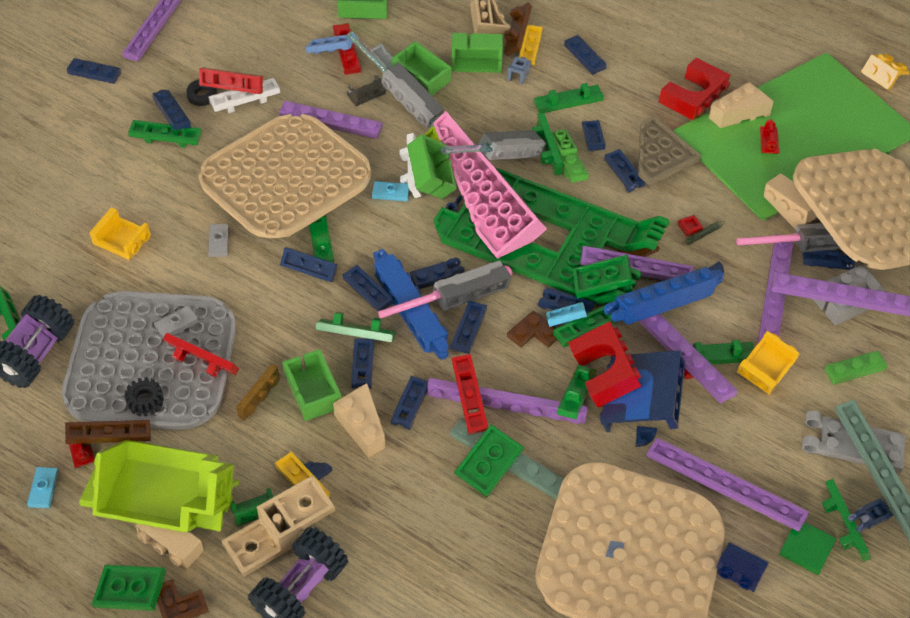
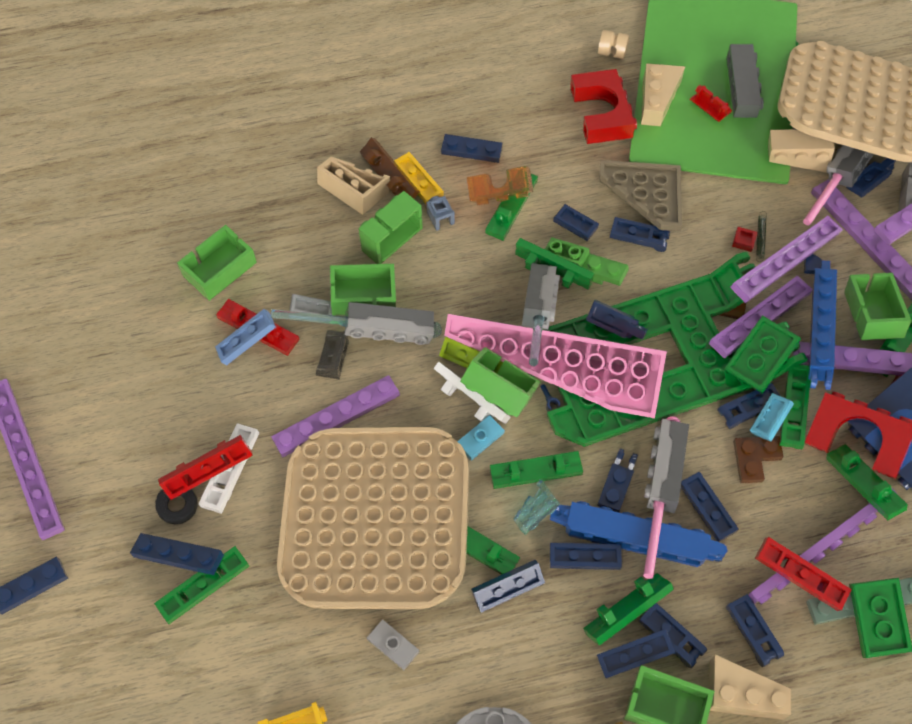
camera: 45 degrees left, 10 degrees up
(331, 349) = (635, 653): none -> dark blue plate
(375, 243) = (536, 508): none -> clear light blue wing
(400, 230) = (535, 469): none -> green hinge
(540, 194) = (615, 321): none -> dark blue hinge
(559, 75) = (517, 183): none -> clear orange arch
(692, 244) = (785, 259): none -> medium lavender plate
(713, 321) = (880, 310): none -> bright green piece
(751, 63) = (613, 44): none -> tan wheel
(810, 141) = (744, 81): none -> dark grey brick

